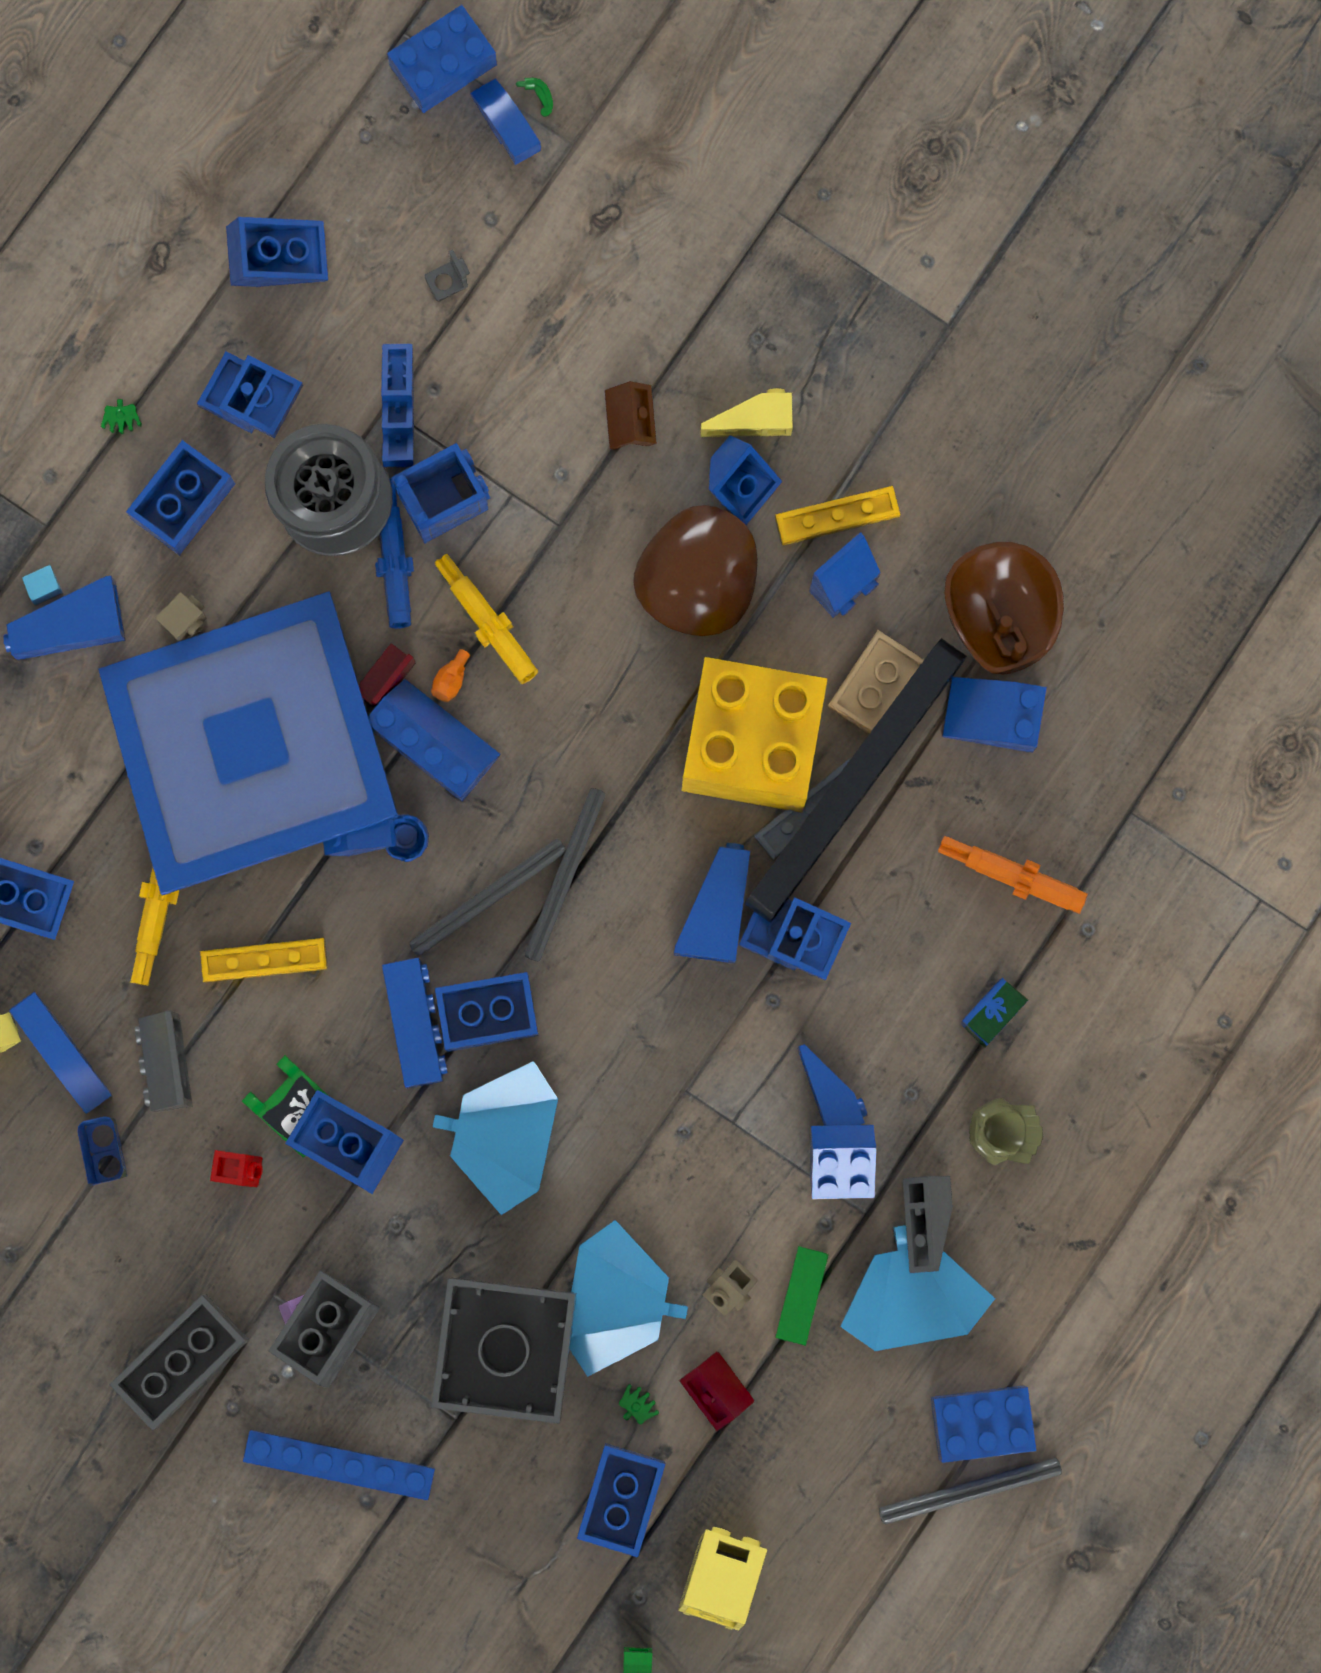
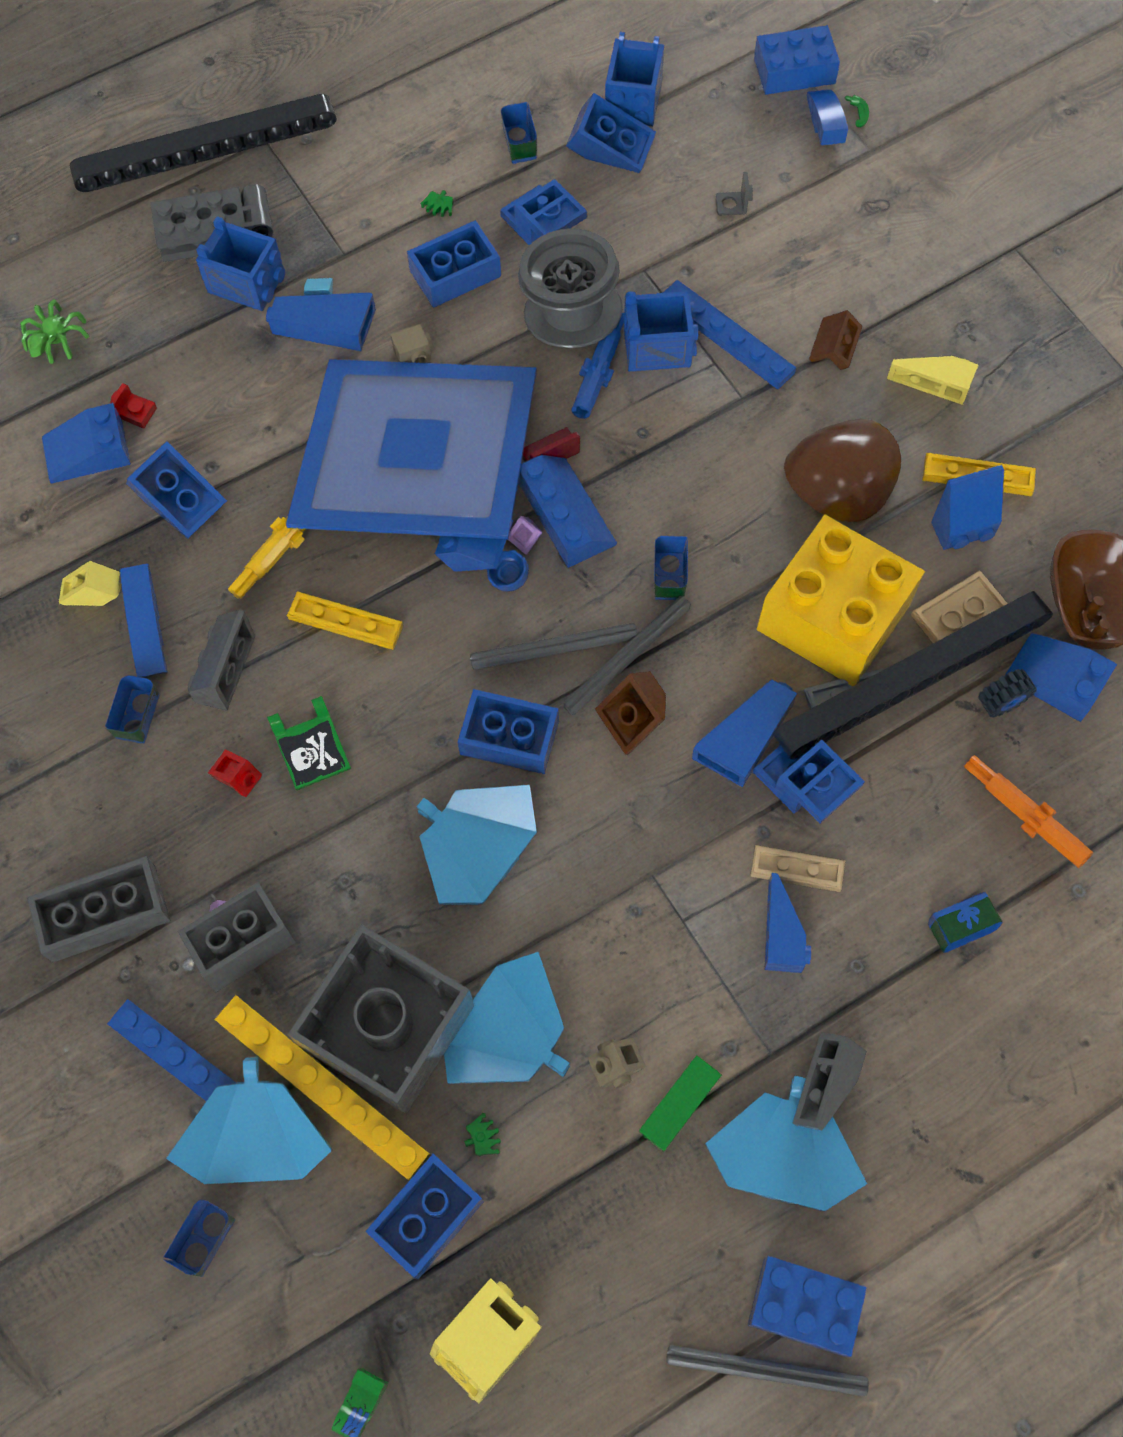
camera: 30 degrees right, 15 degrees down
(161, 267) = (518, 116): none -> blue piece
(273, 172) = (635, 77): none -> blue container
(344, 1141) = (337, 788): blue slope -> none
(397, 405) = (656, 261): blue slope -> none
(403, 785) = (524, 534): none -> lavender slope
(413, 1022) = (442, 717): blue brick -> none
(425, 1605) = (184, 1238): none -> blue piece
(431, 1500) = (250, 1134): none -> dark azure panel
(450, 678) = (602, 469): orange piece -> none
(474, 1430) = (323, 1088): none -> yellow brick
(492, 628) = (653, 443): yellow piece -> none
(512, 454) = (737, 340): none -> blue plate
(571, 737) = (671, 546): none -> blue piece
(599, 934) = (633, 709): none -> reddish brown slope
(717, 1391) = (562, 1156): dark red panel -> none
(741, 478) = (911, 413): blue slope -> none
(819, 1024) = (798, 868): none -> tan tile
(842, 1161) = (770, 991): brick -> none
(952, 761) = (1007, 693): none -> black wheel
(1005, 1132) = (935, 1034): olive hair -> none

